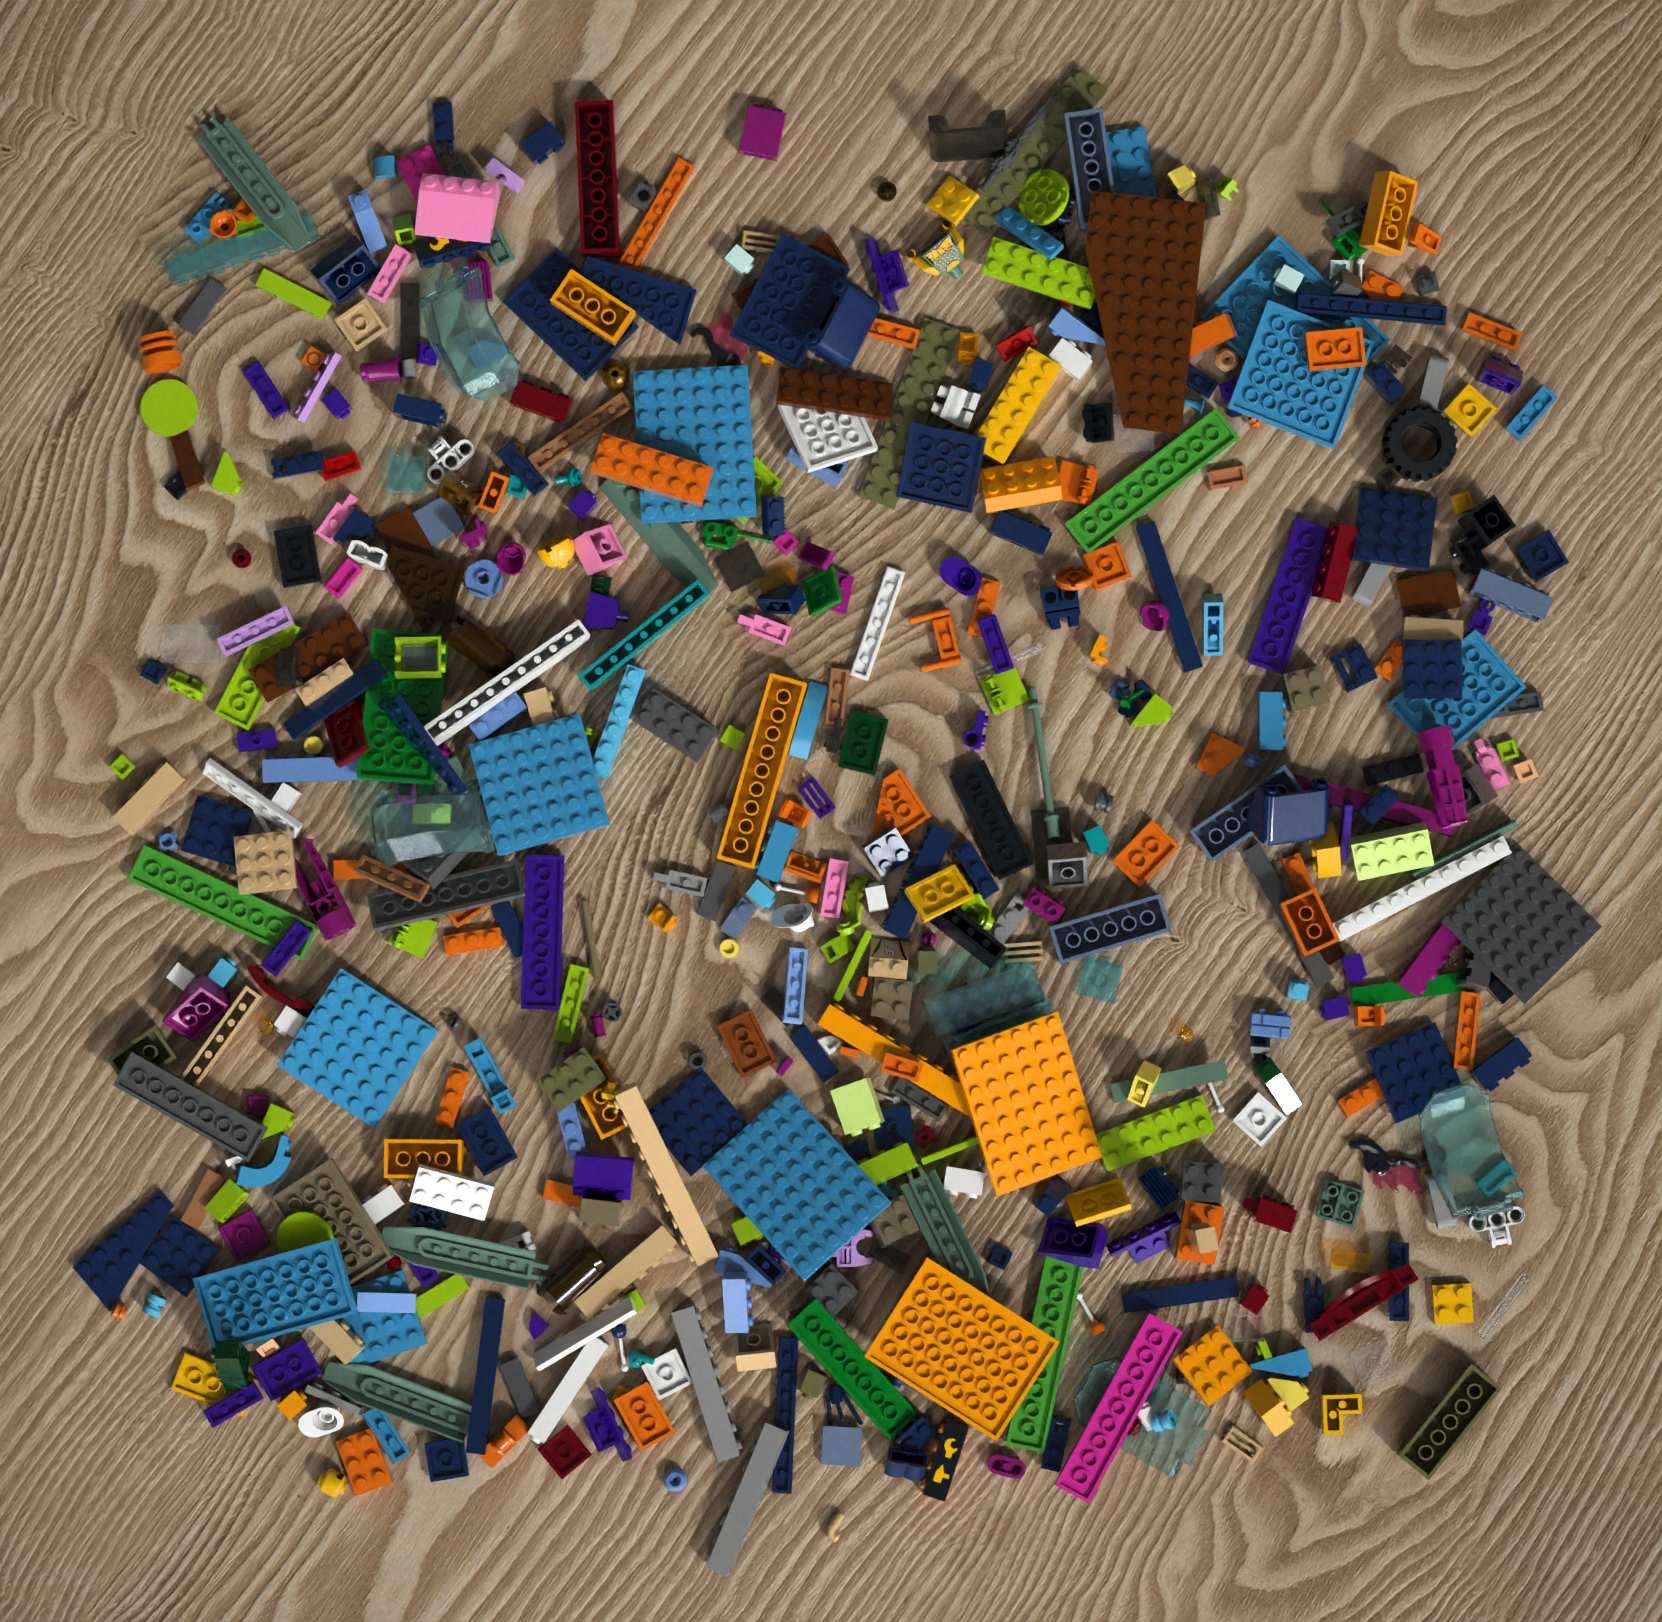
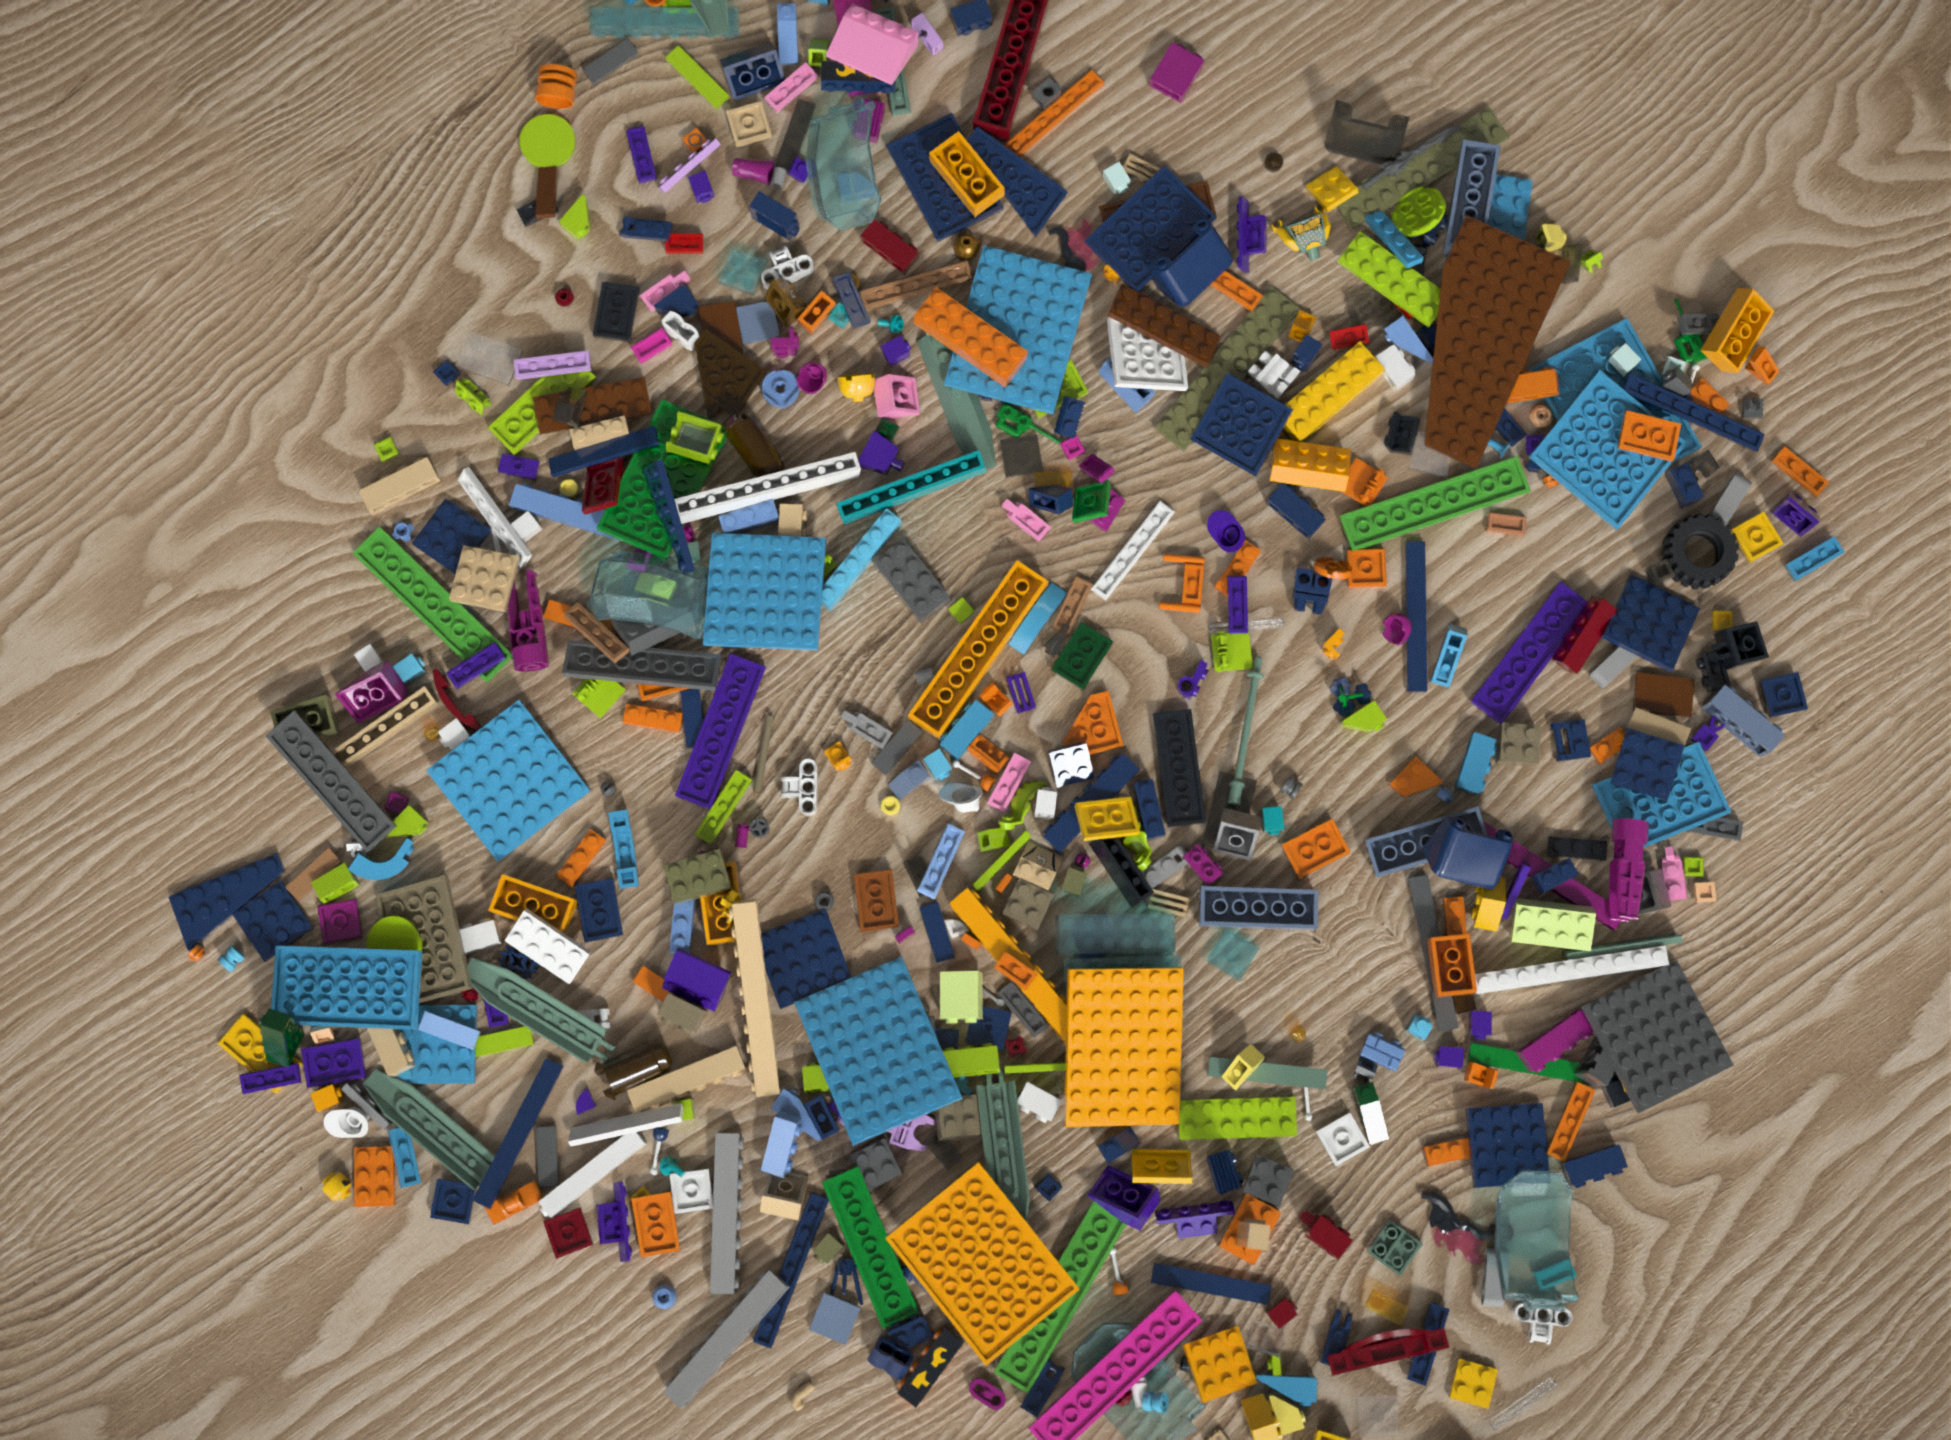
camera: 15 degrees right, 5 degrees down
(634, 962) = (797, 785): none -> white piece

